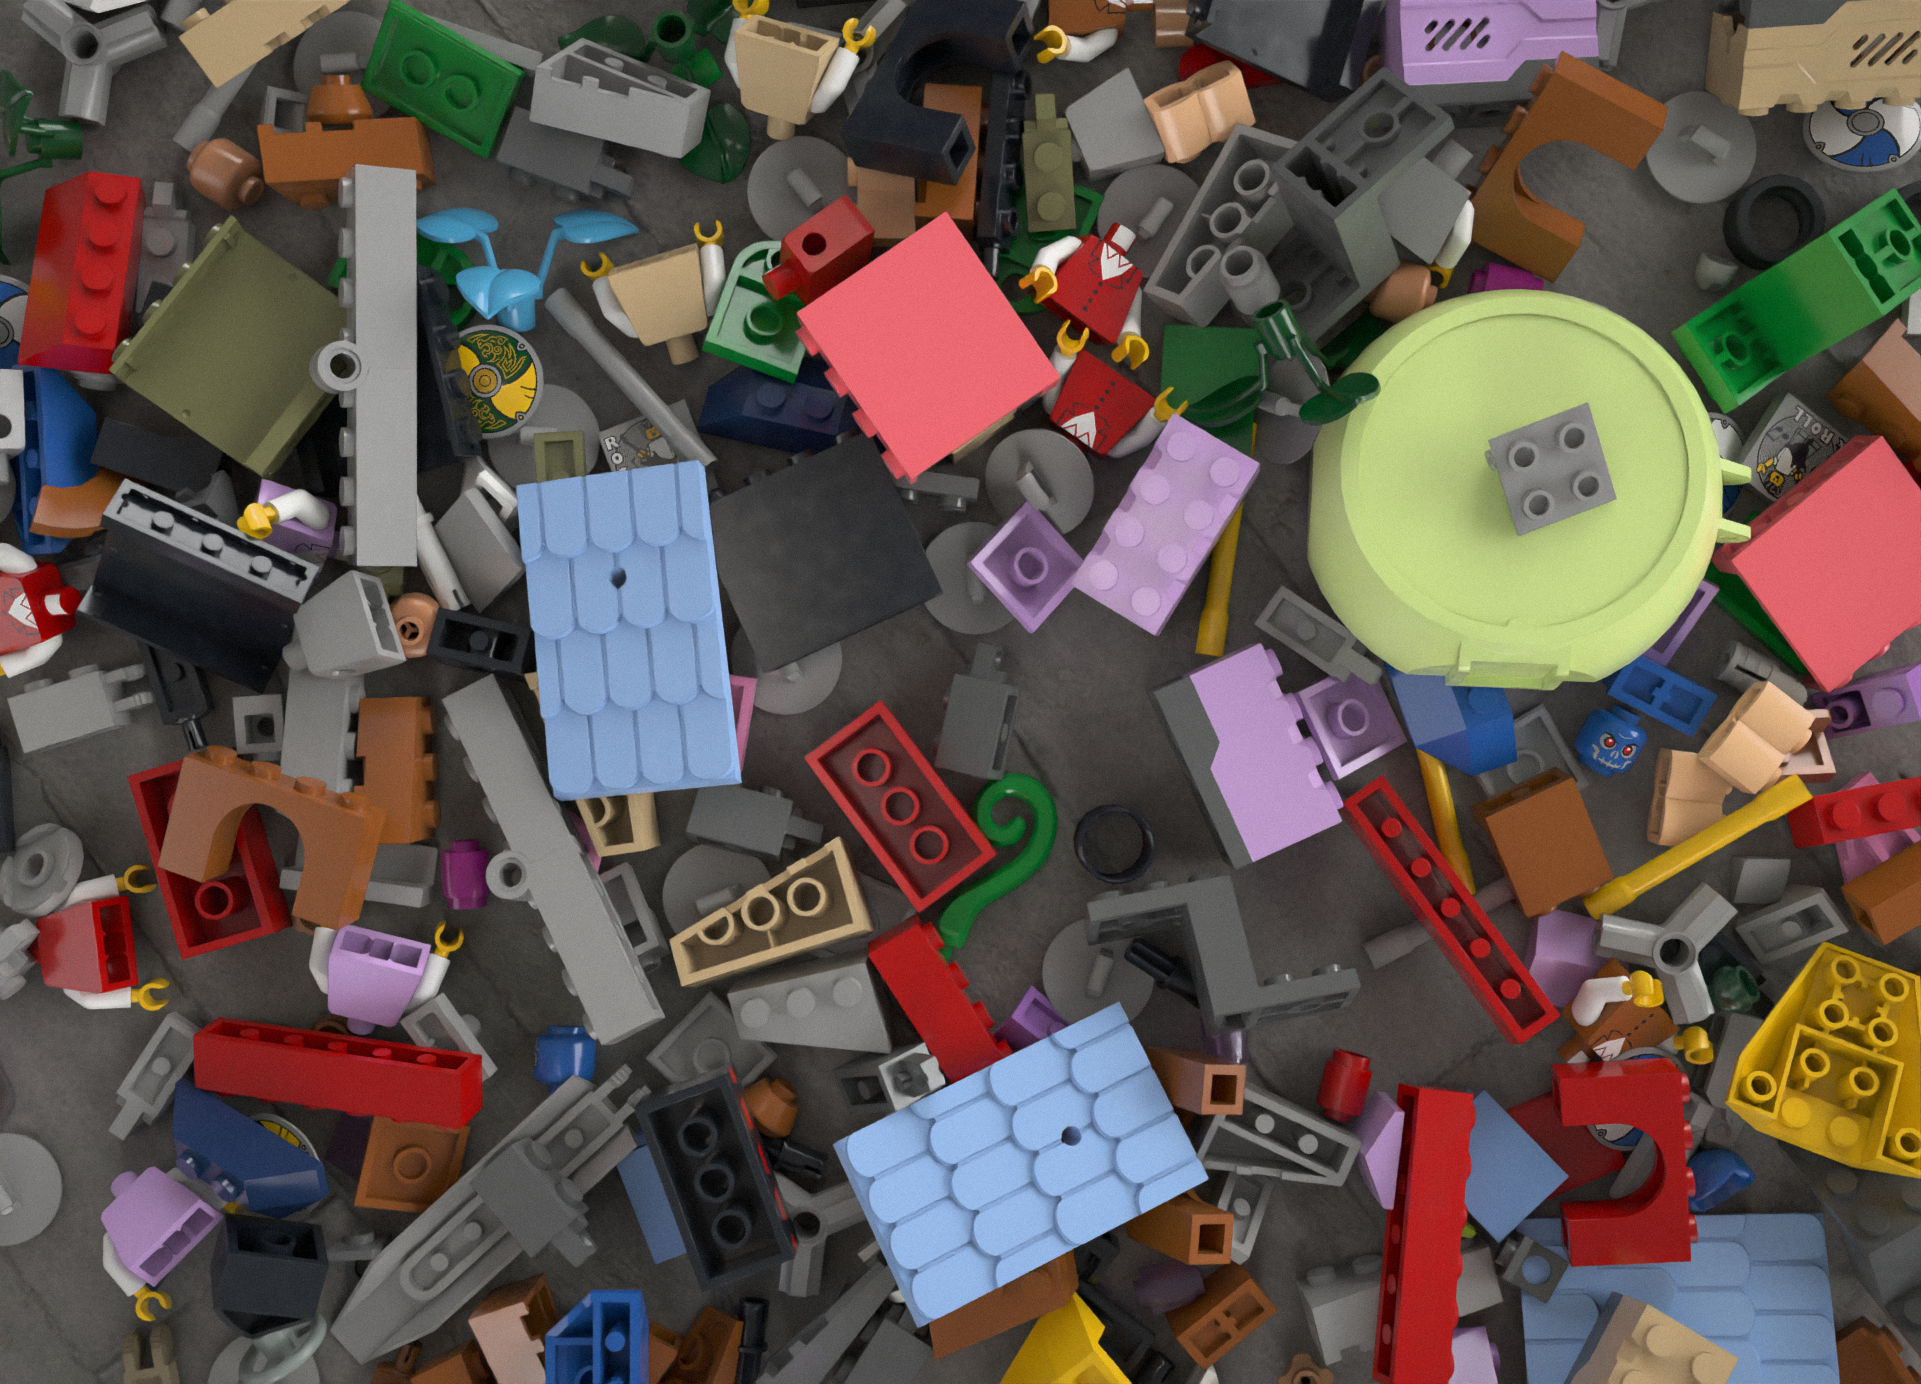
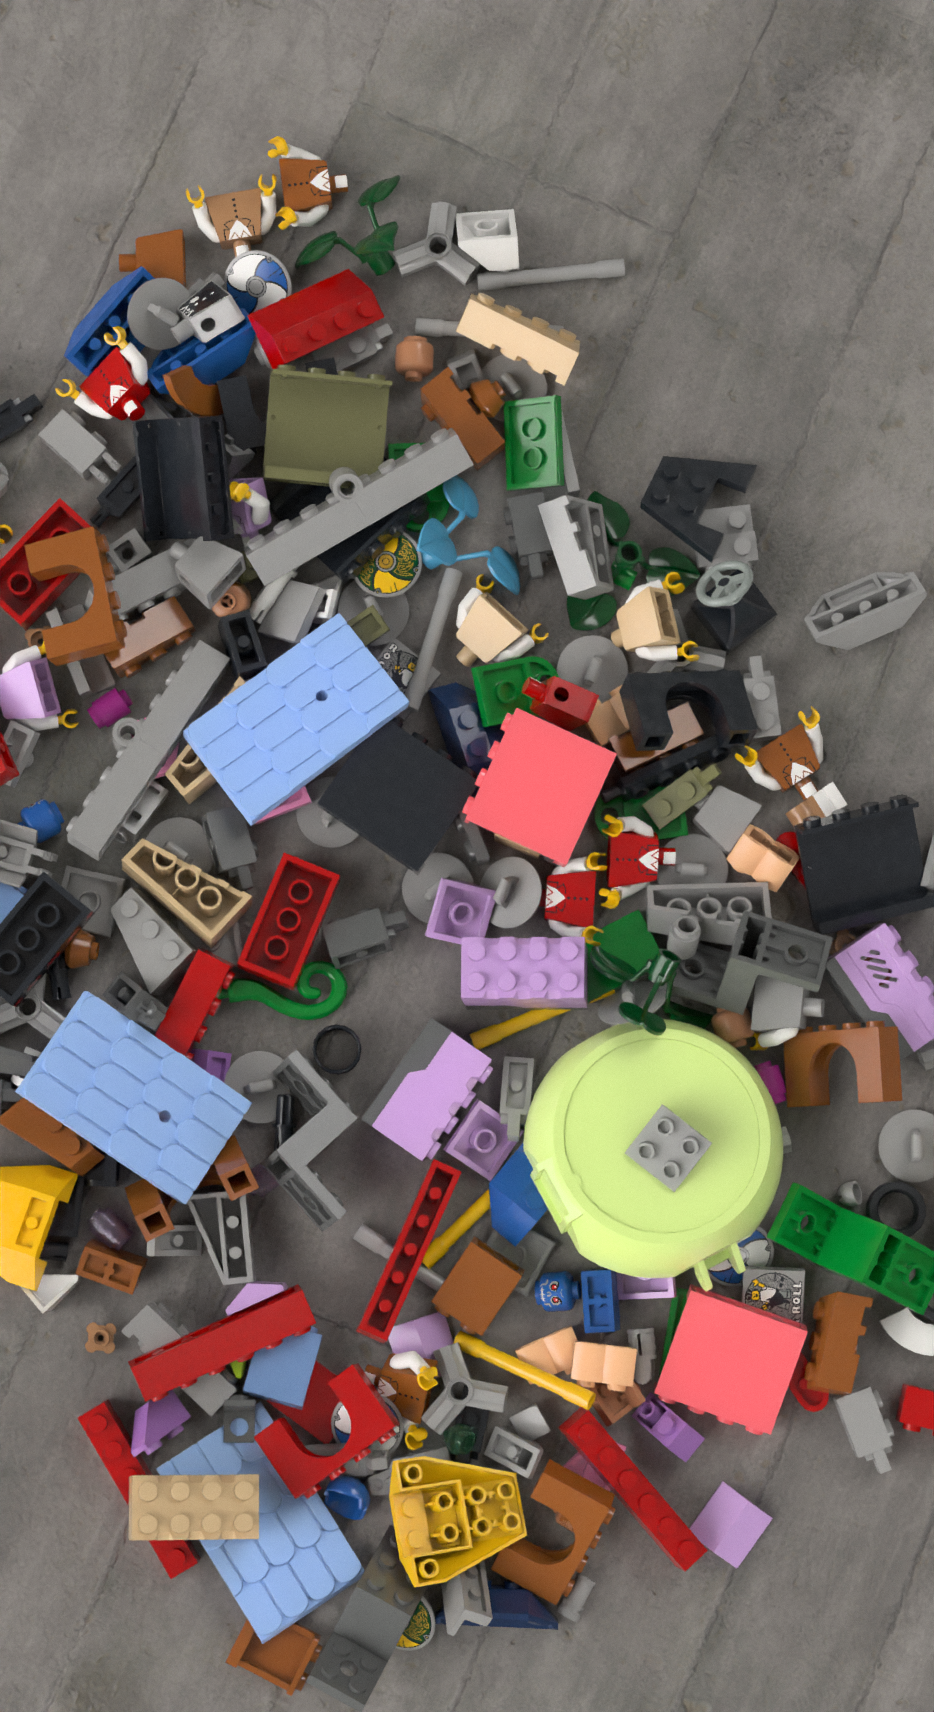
camera: 60 degrees right, 5 degrees down
(1344, 1085) = (279, 1259): red brick -> none

